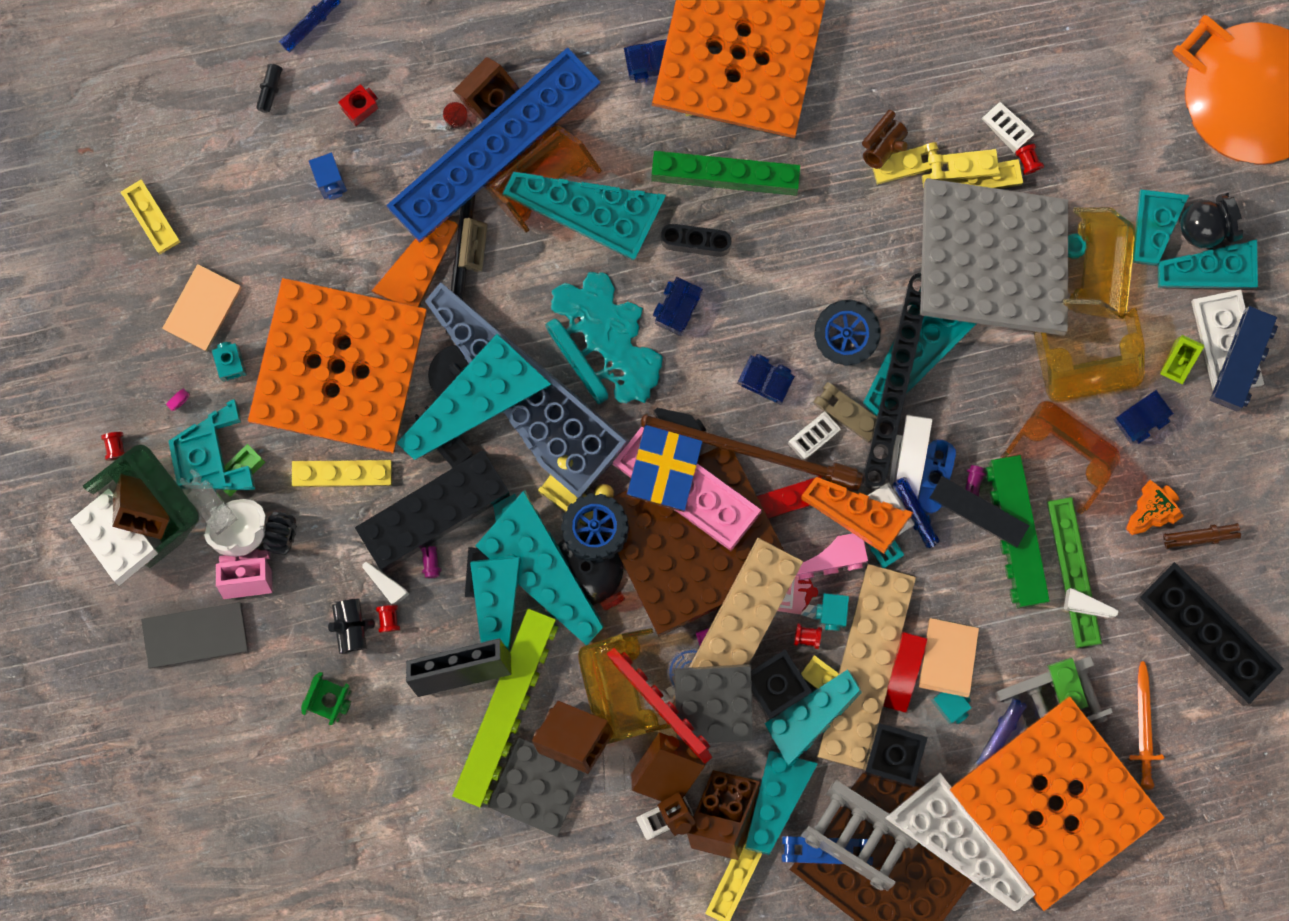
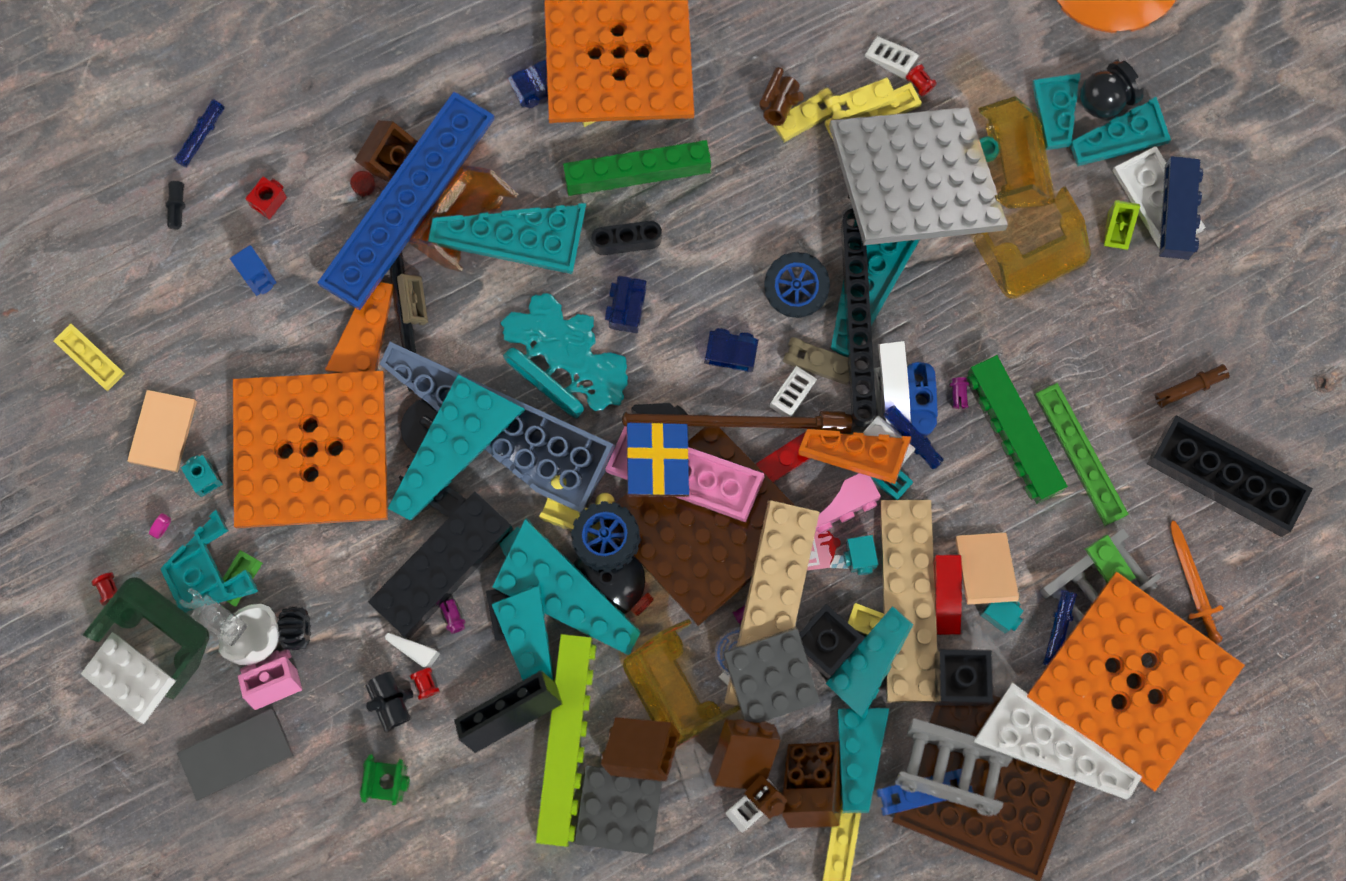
camera: 15 degrees left, 5 degrees down
(137, 508) = (144, 642): reddish brown slope -> none
(341, 473) = (341, 554): light yellow plate -> none
(665, 710) = (727, 696): red plate -> none
(807, 636) = (843, 586): red bush -> none
(979, 512) = (974, 419): black tile -> none
(1052, 419) = (1015, 315): clear orange windscreen -> none
(1081, 603) = (1101, 480): white slope -> none
(1143, 417) = (1102, 288): clear blue brick -> none
(1154, 508) = (1139, 372): orange rock -> none

